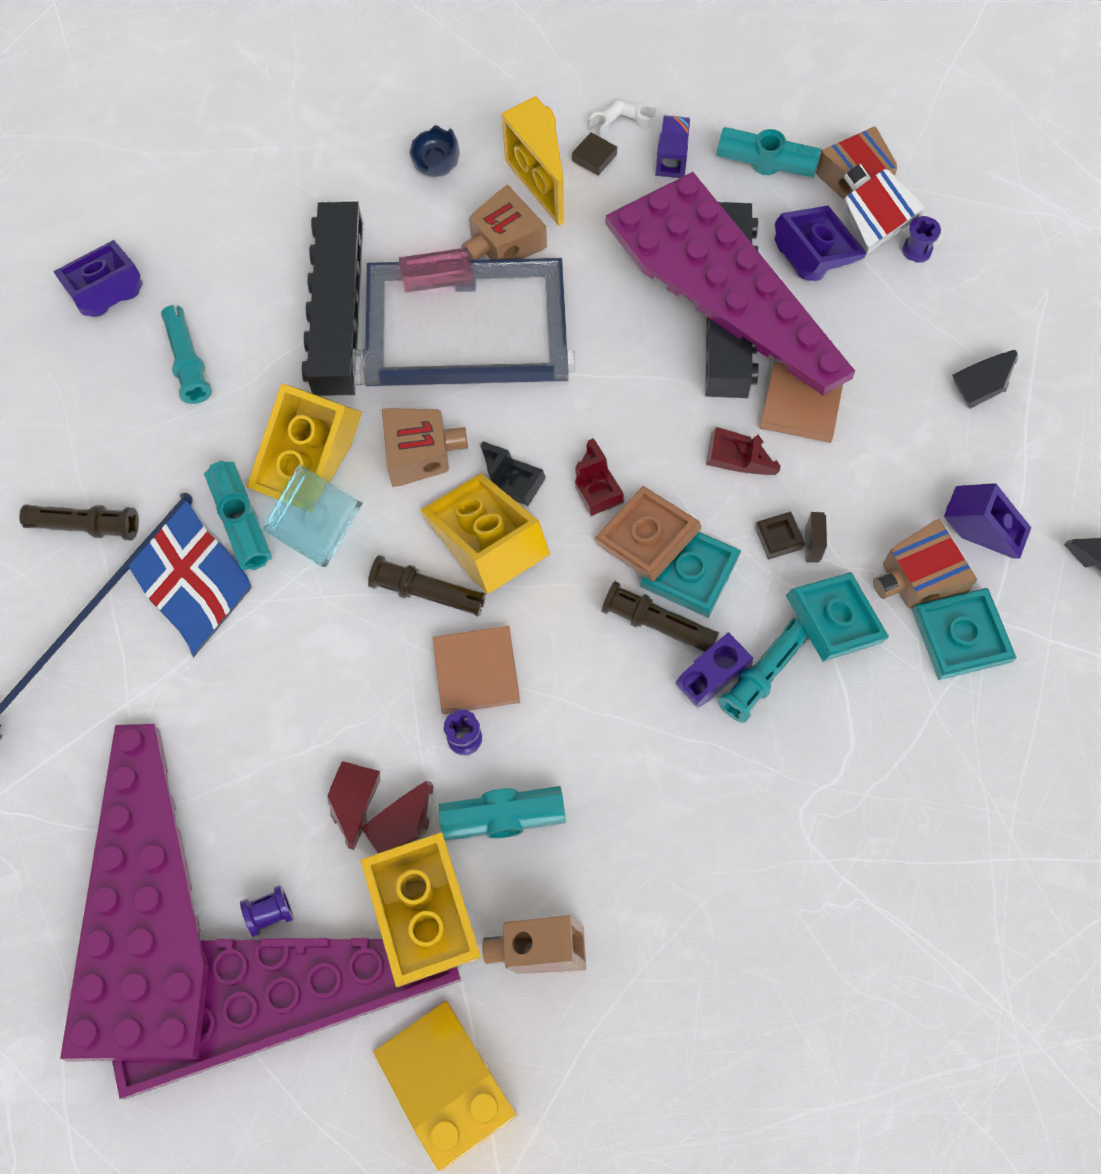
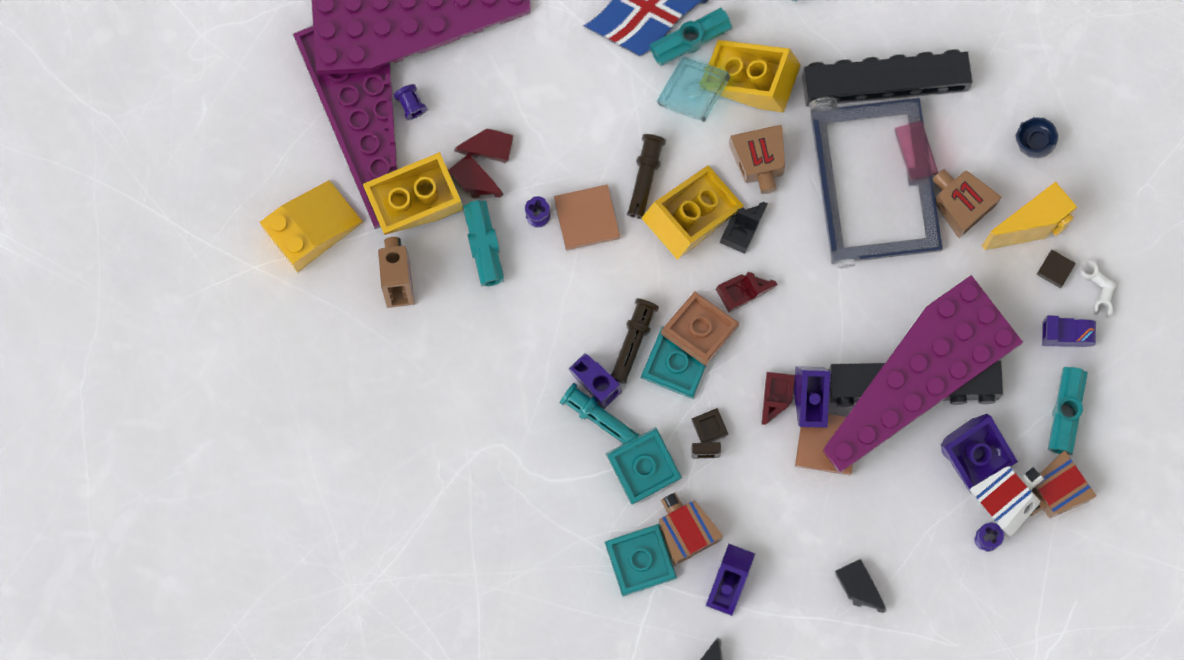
camera: 85 degrees right, 10 degrees up
(746, 404) = (812, 396): none -> dark purple slope

